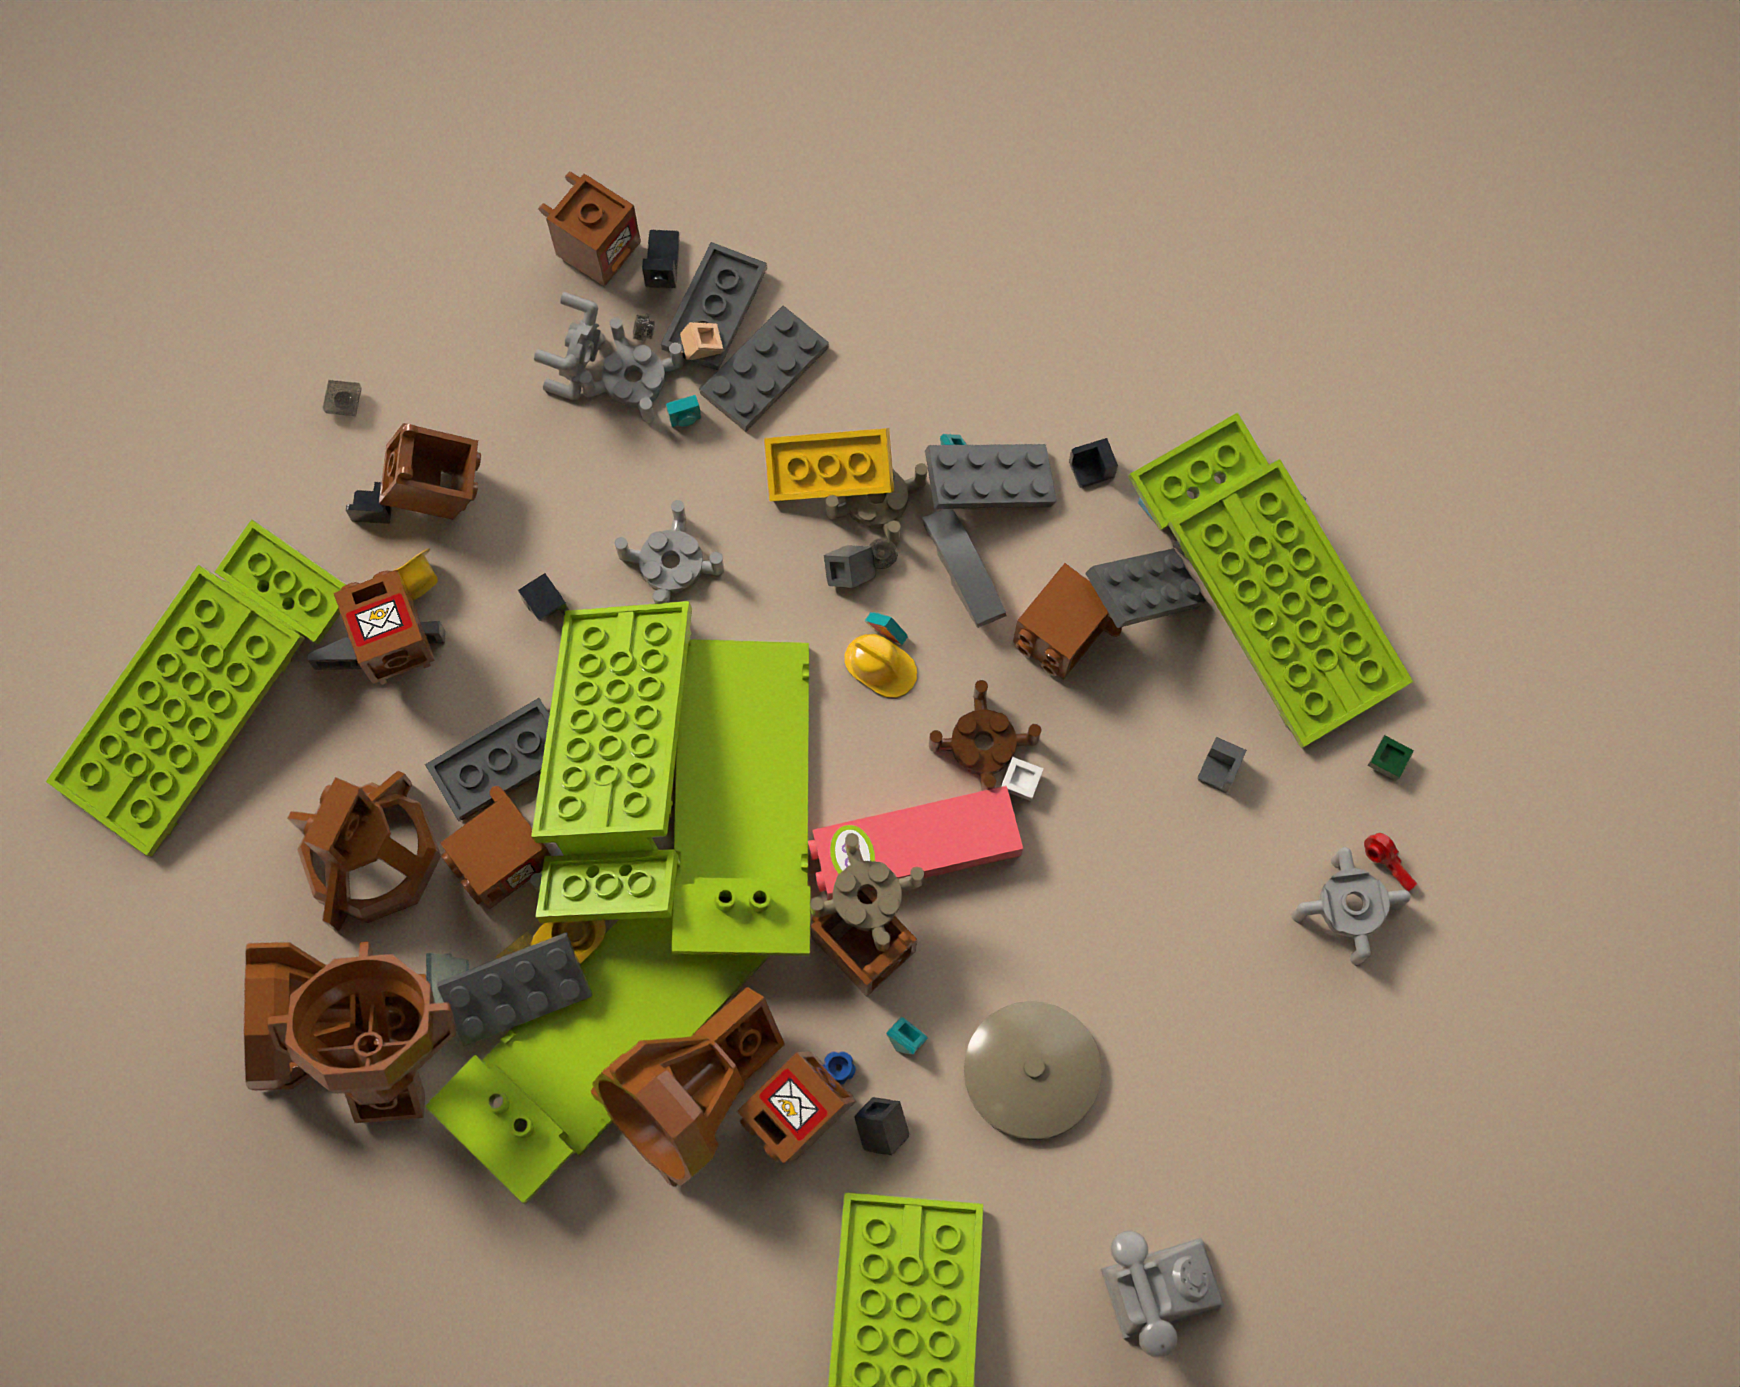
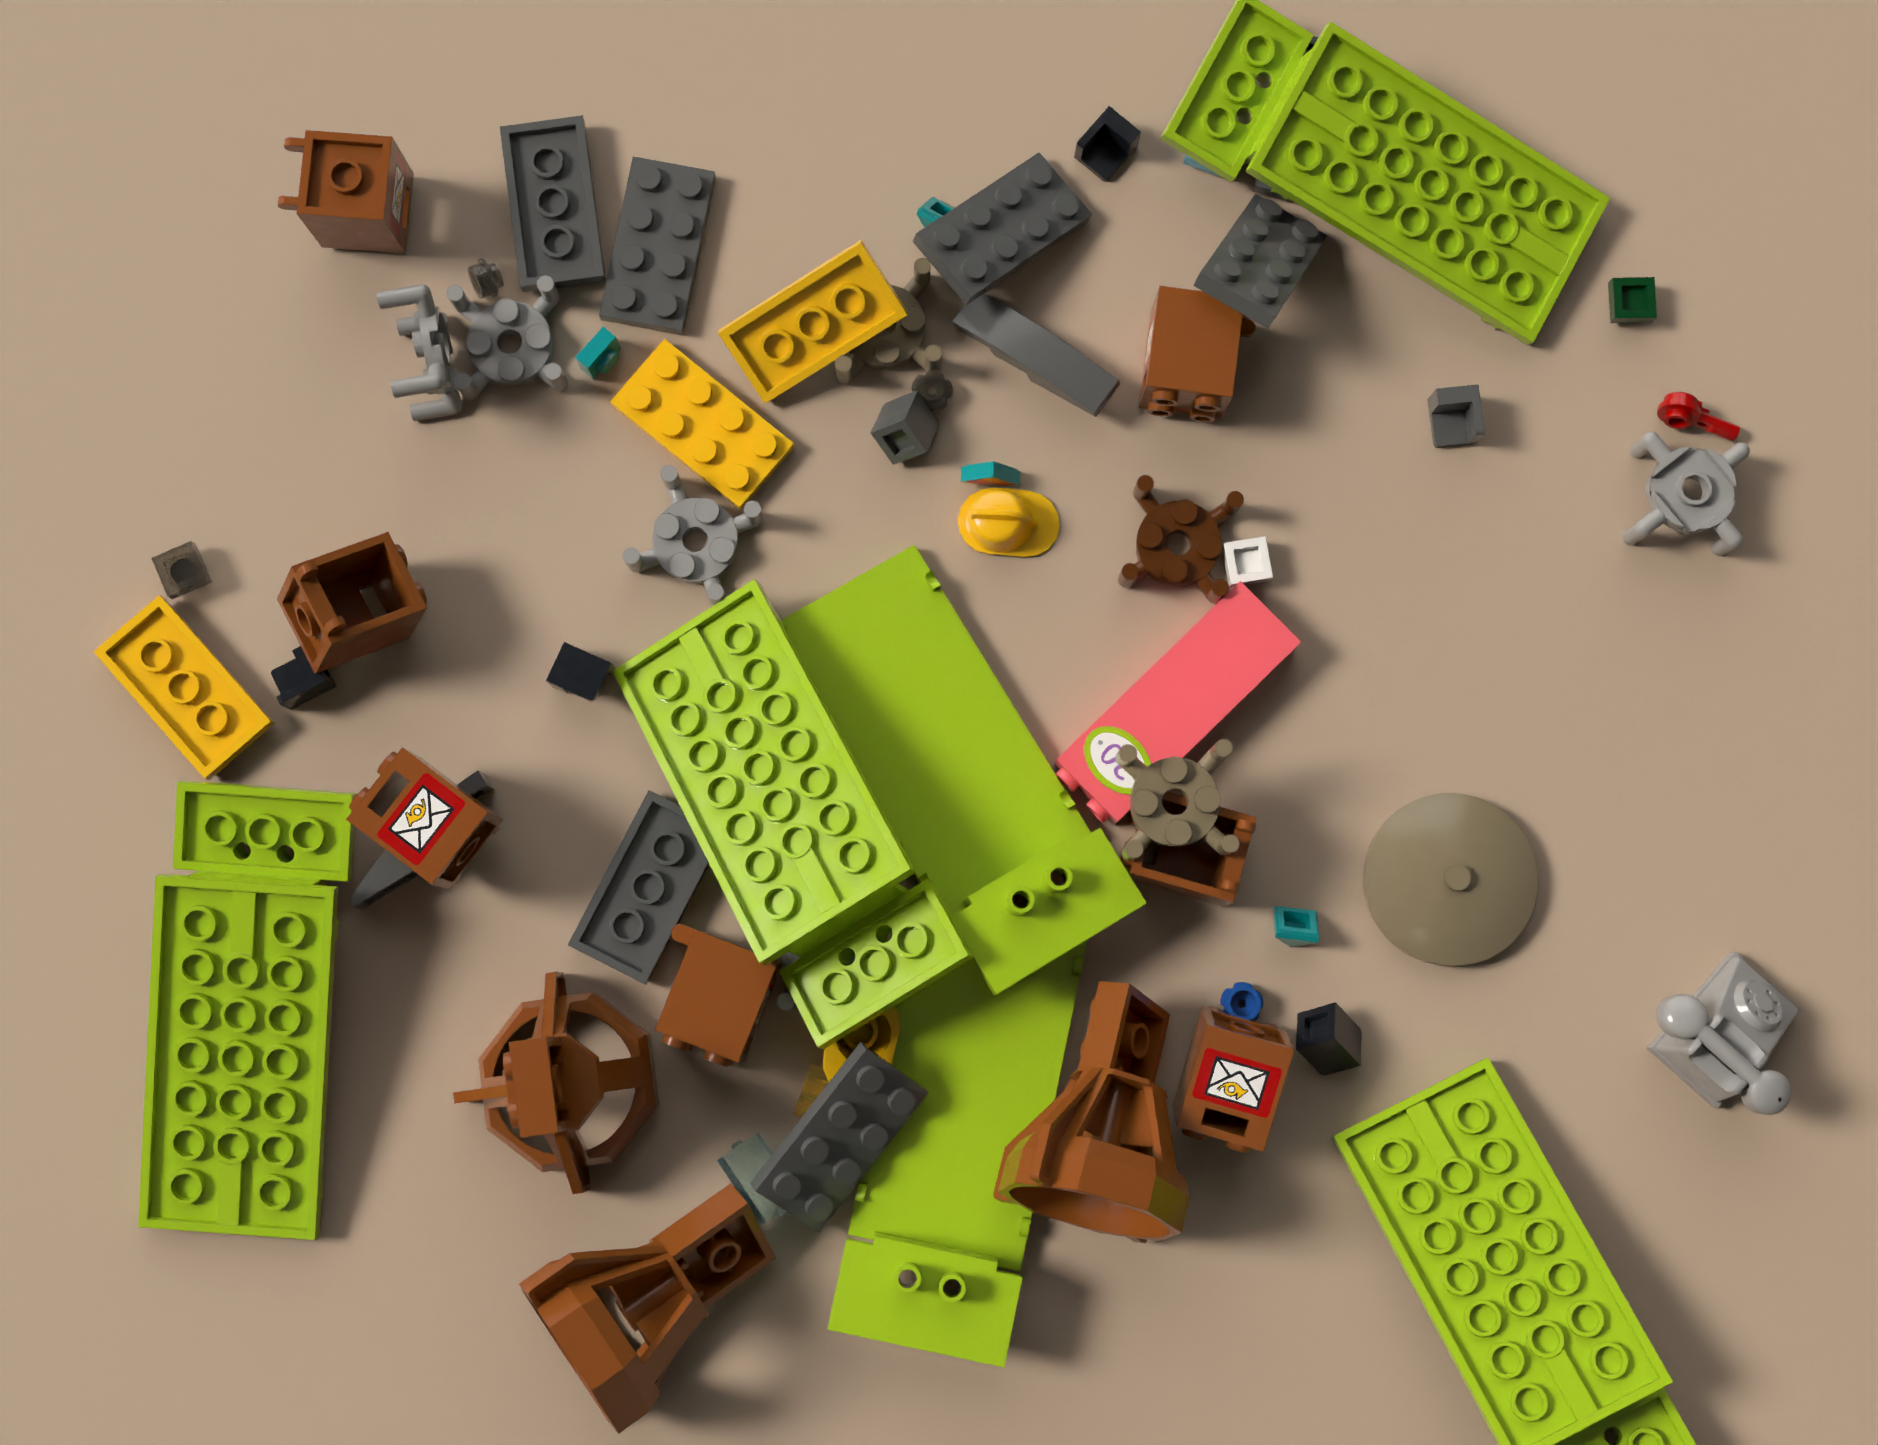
camera: 35 degrees left, 10 degrees up
(296, 469) = (184, 687): none -> yellow plate
(378, 1071) = (752, 1321): dark orange plate -> none
(418, 575) = (413, 731): yellow piece -> none
(662, 259) = (453, 180): black bracket -> none
(701, 340) = (566, 256): light nougat slope -> none
(722, 492) = (702, 424): none -> yellow plate

